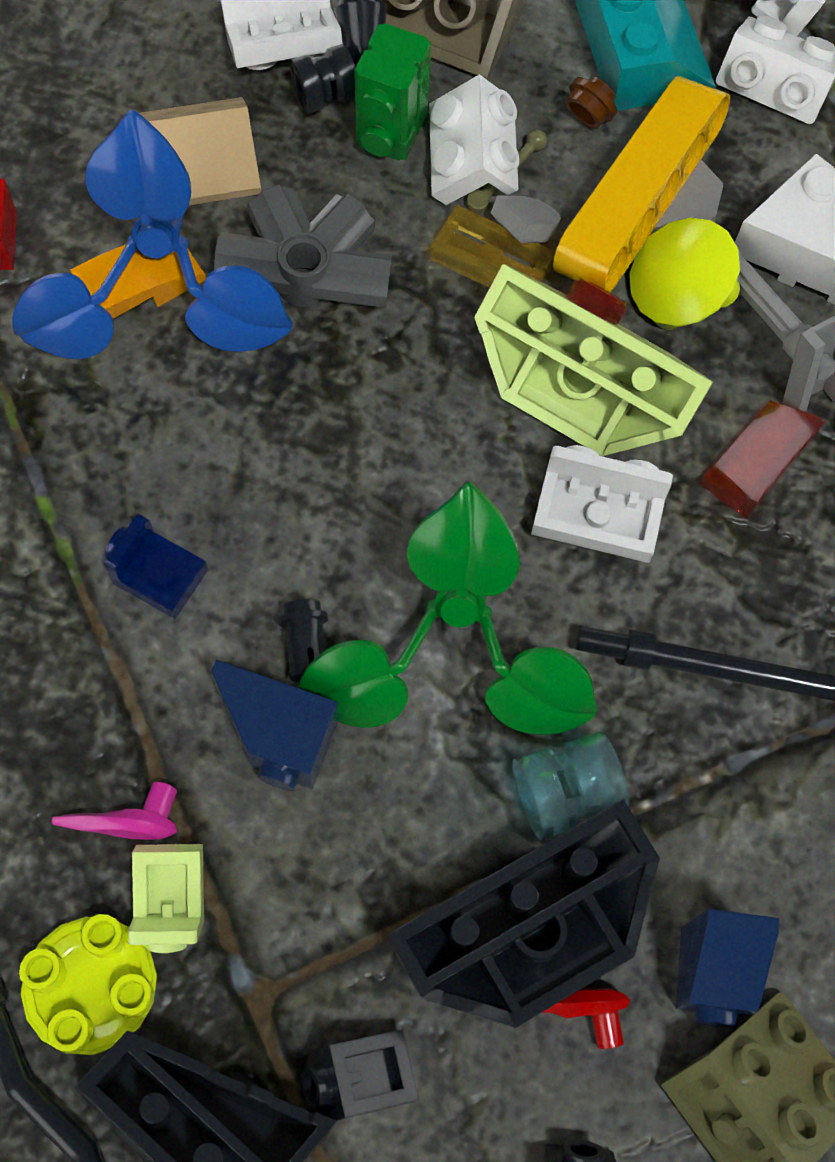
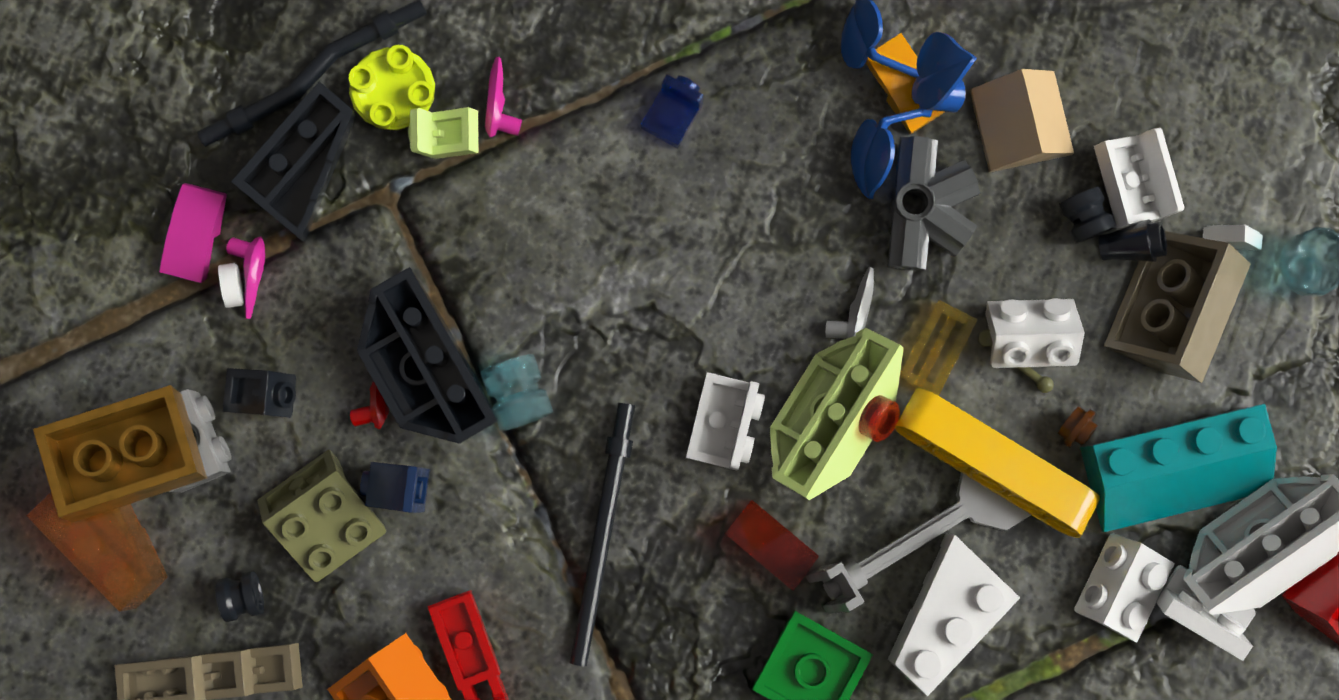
camera: 90 degrees right, 15 degrees up
(278, 725) = (558, 196): dark blue slope -> none
(304, 633) = (625, 215): black pin -> none
(359, 1077) = (333, 257): black bracket -> none
(392, 91) = (1064, 264): green brick -> none
(448, 342) = (858, 311): none -> light grey bar
(465, 556) = (652, 318): green plant -> none
(526, 218) = (966, 373): light grey tile -> none
(685, 273) = (919, 493): neon yellow dish -> none

